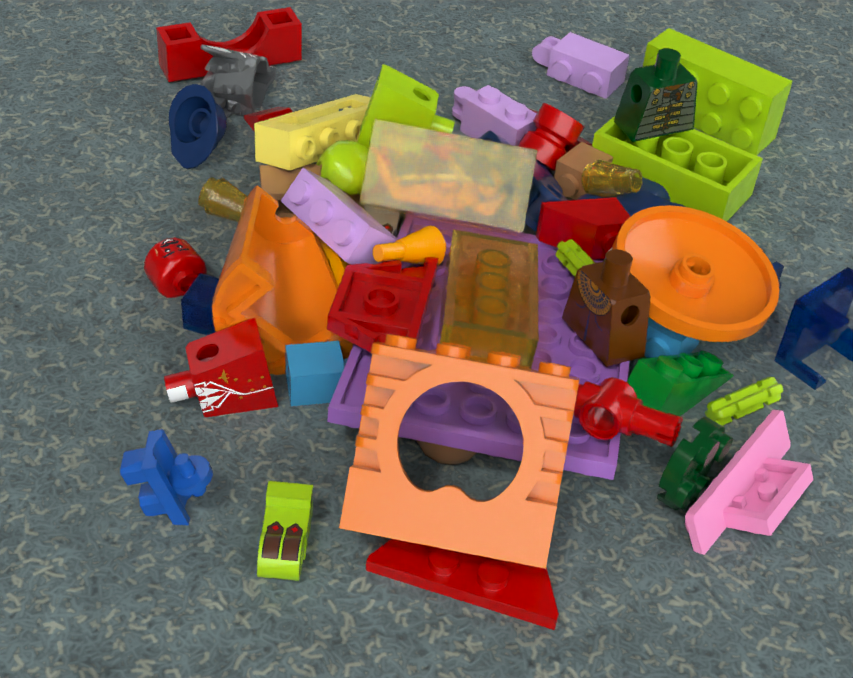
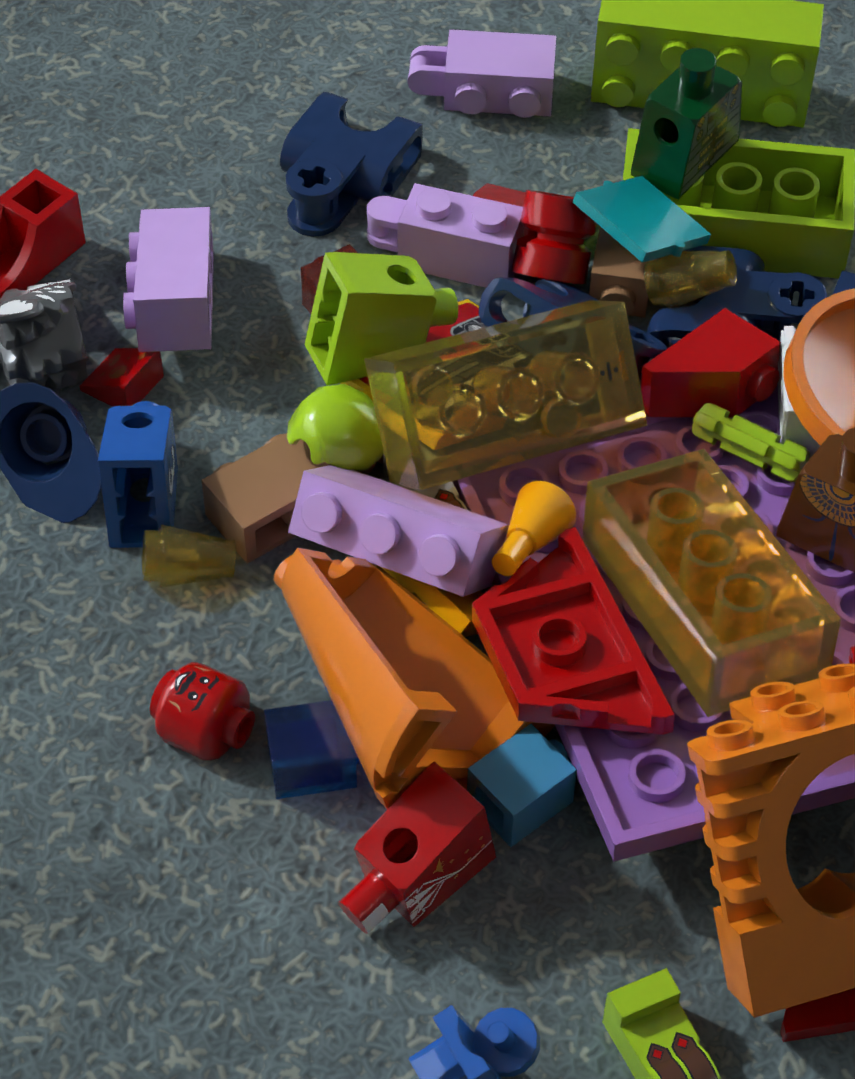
camera: 25 degrees left, 10 degrees up
(228, 150) = (135, 446): none -> blue torso
(309, 133) = (248, 377): light yellow brick -> none
(323, 79) = (171, 280): none -> lavender brick
(467, 65) = (336, 166): none -> dark blue piece
(598, 137) = (641, 218): none -> teal piece

